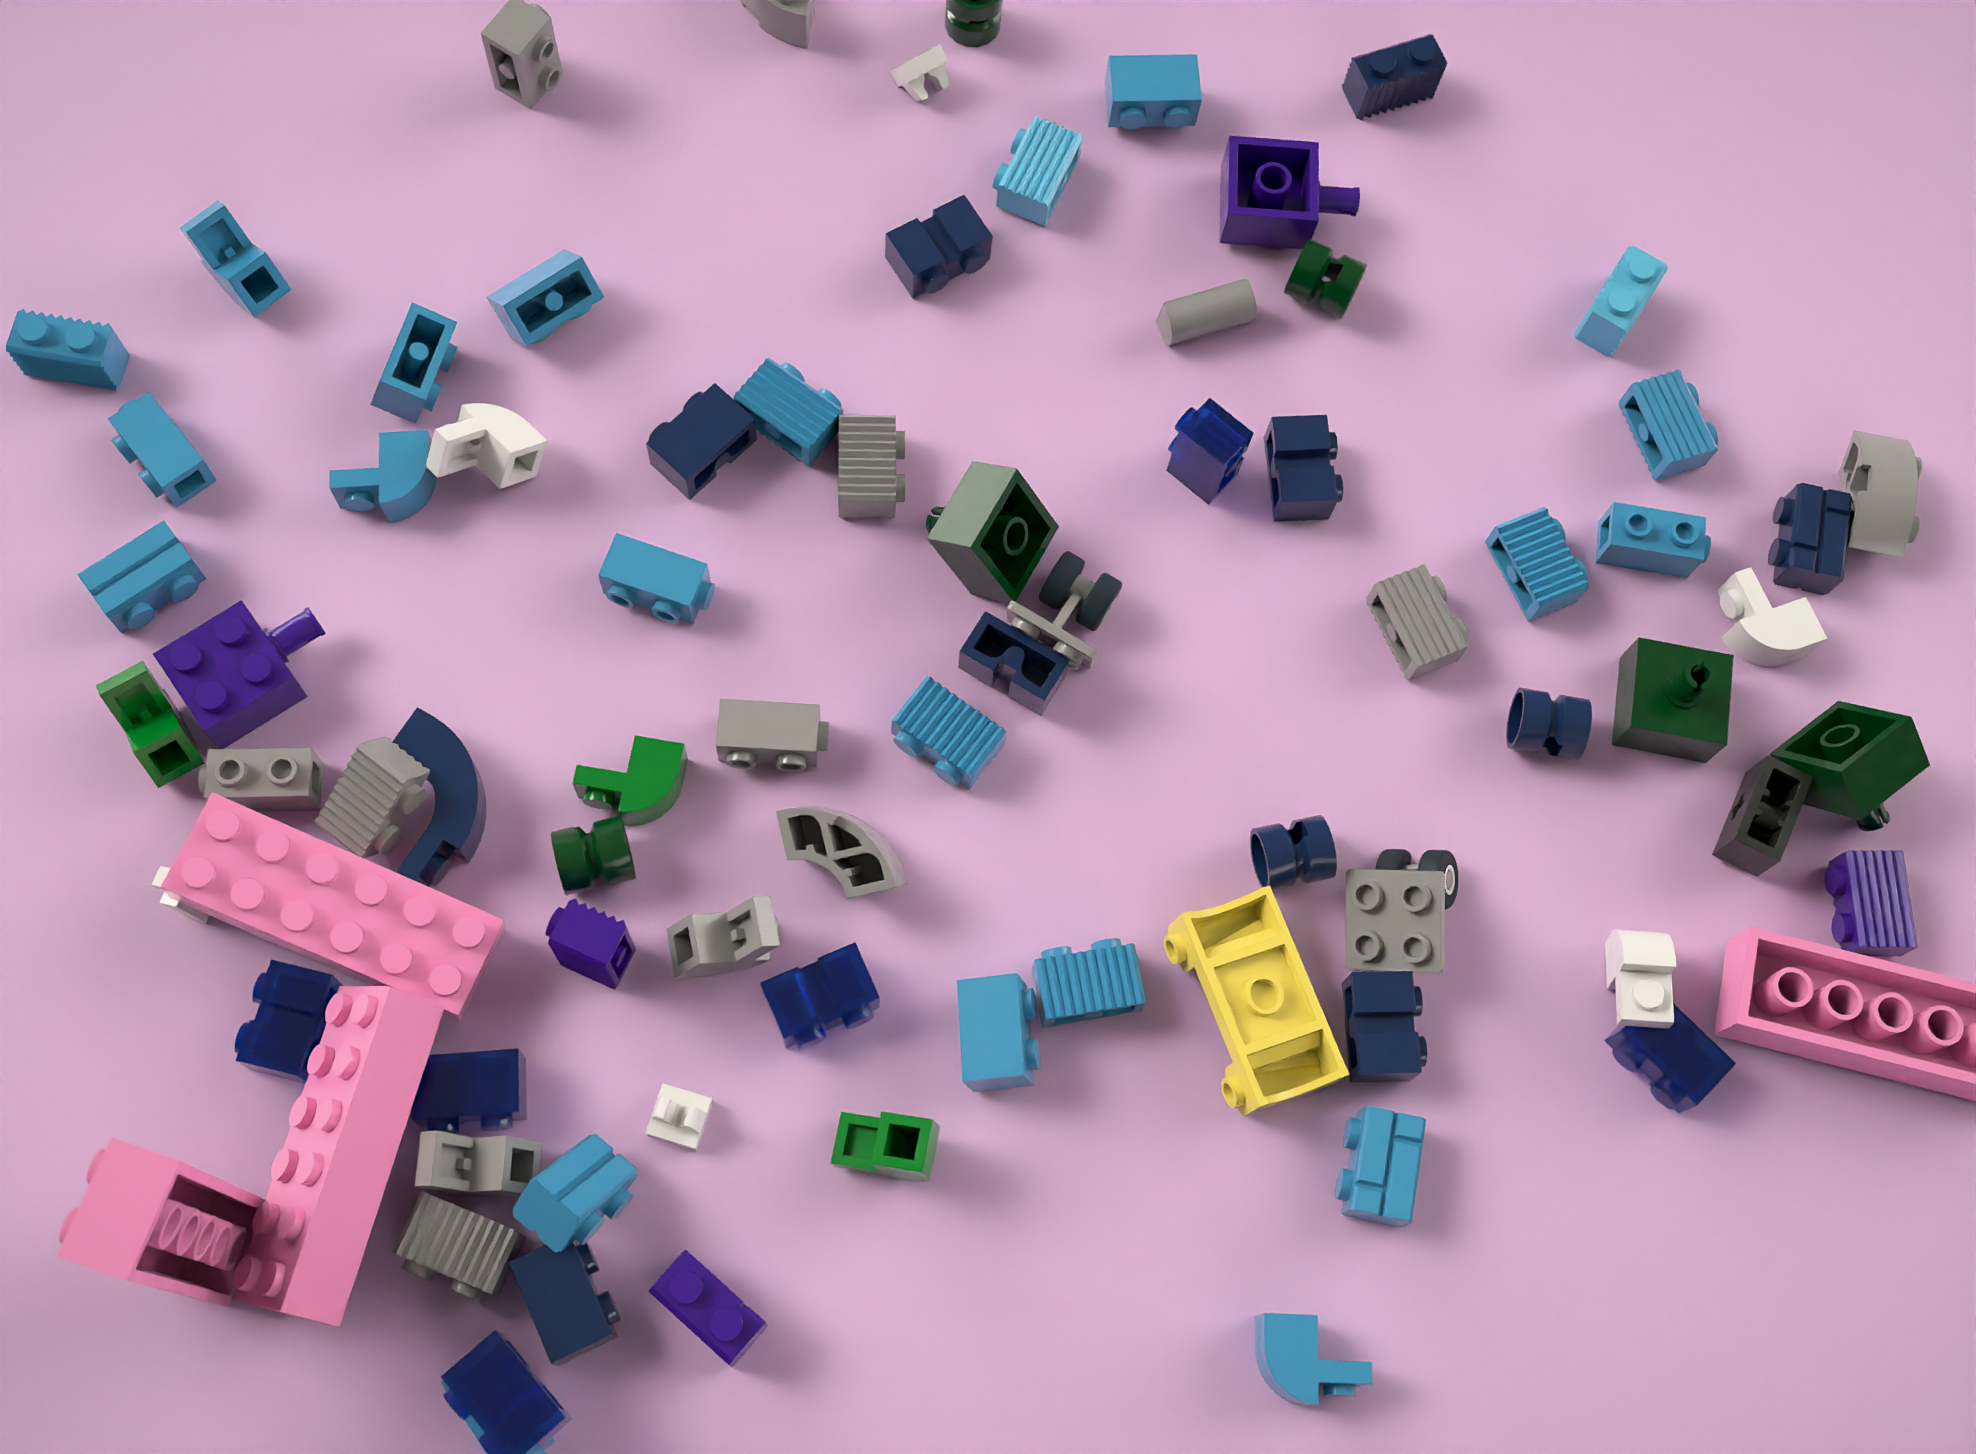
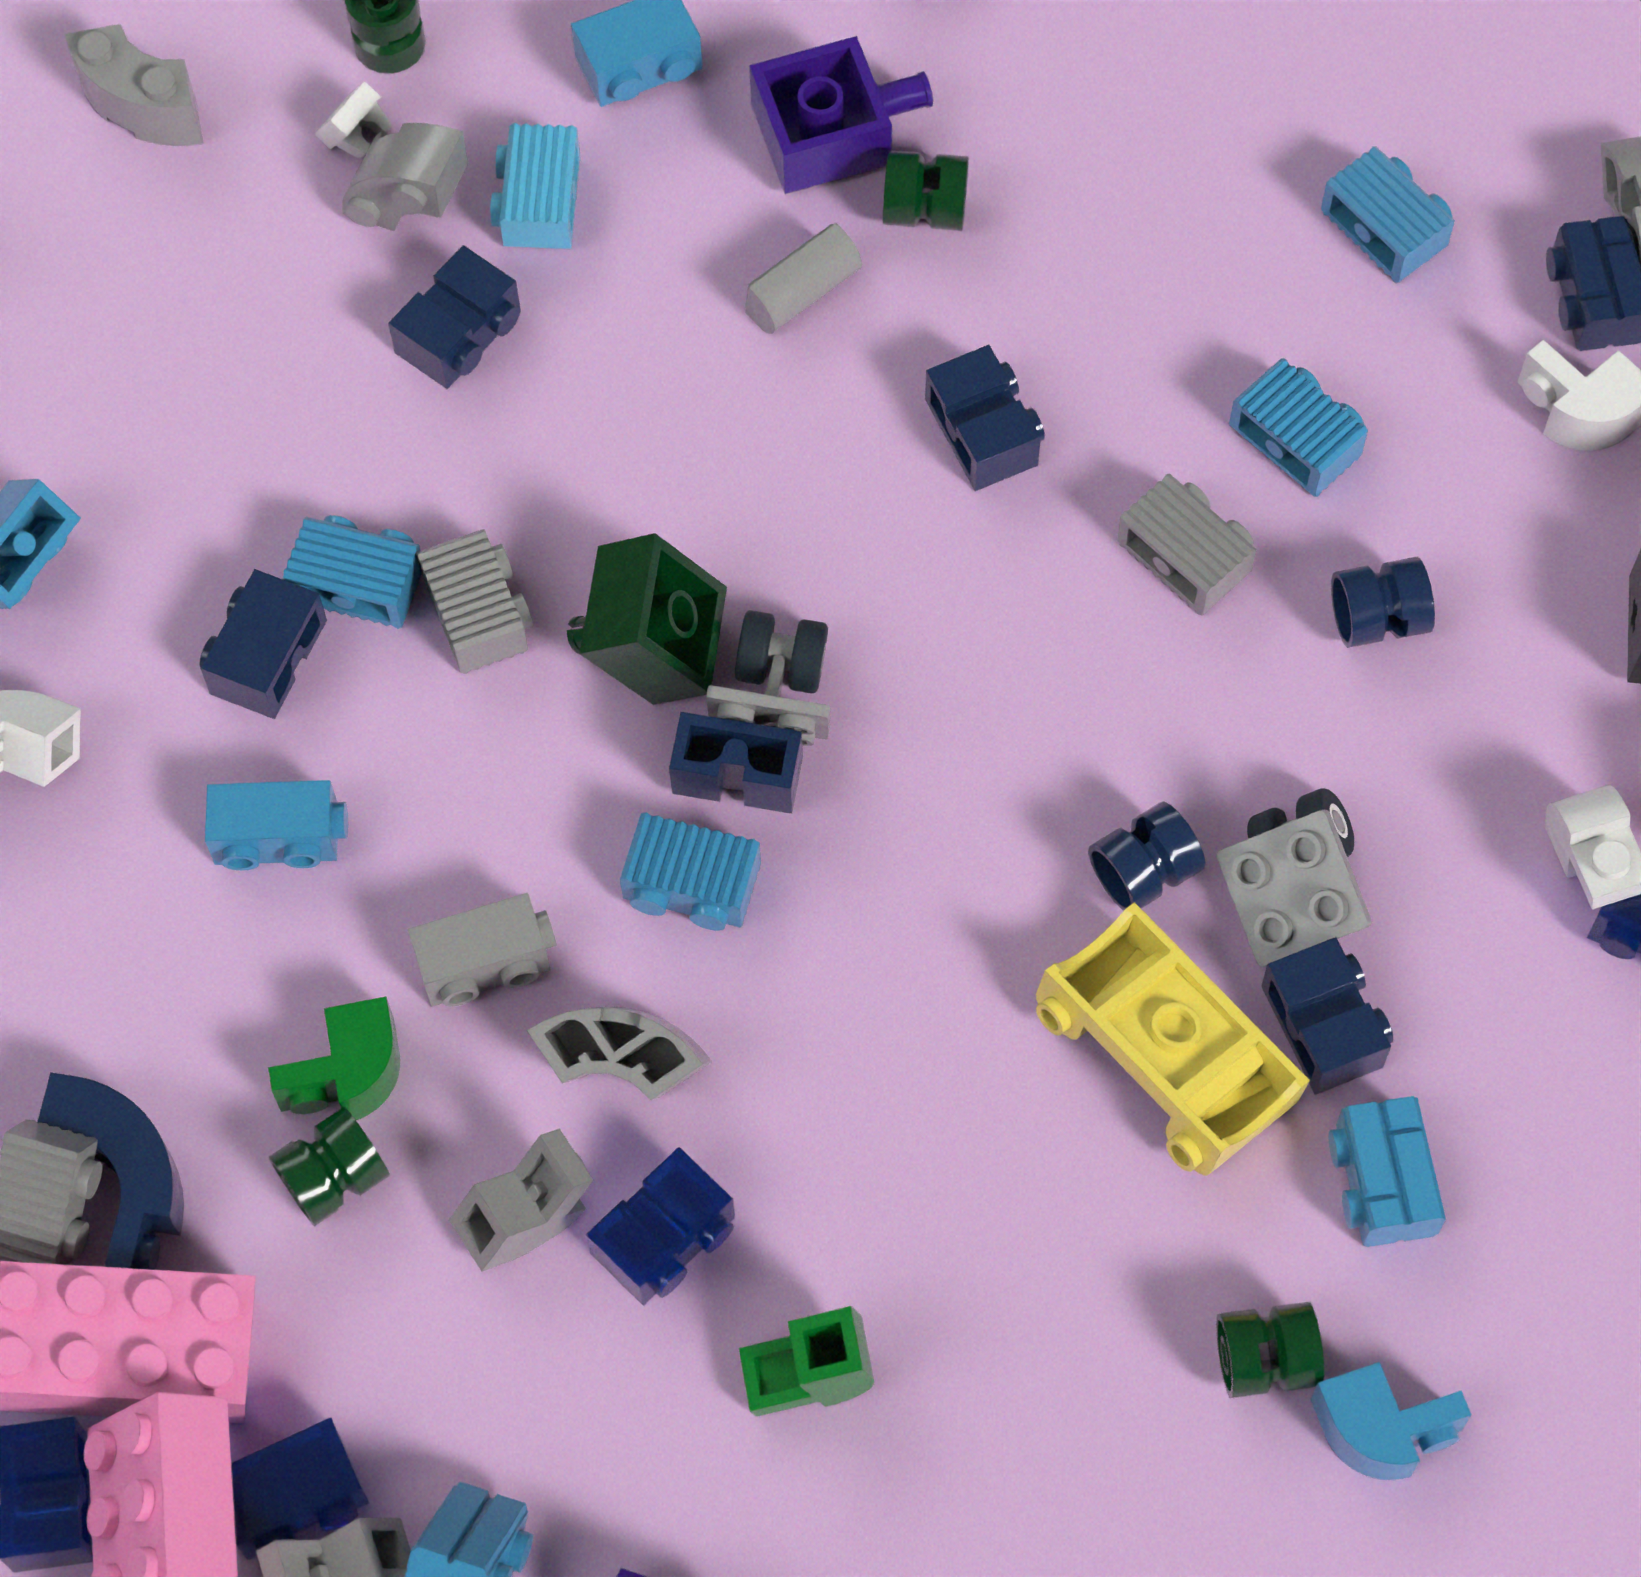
camera: 10 degrees left, 5 degrees down
(590, 943) = (368, 1264): dark purple brick -> none
(679, 1117) = (550, 1429): white tile -> none
(943, 126) = (406, 175): none -> light grey brick
(996, 1032) = (885, 1189): dark azure brick -> none
(1088, 983) = (968, 1094): dark azure brick -> none
(1208, 450) = (866, 435): clear blue brick -> none
(1256, 1276) = (1292, 1347): none -> dark green wheel
(1620, 301) = (1277, 92): medium azure brick -> none
(1652, 540) = (1419, 351): dark azure brick -> none
(1673, 700) = (1514, 523): dark green brick -> none

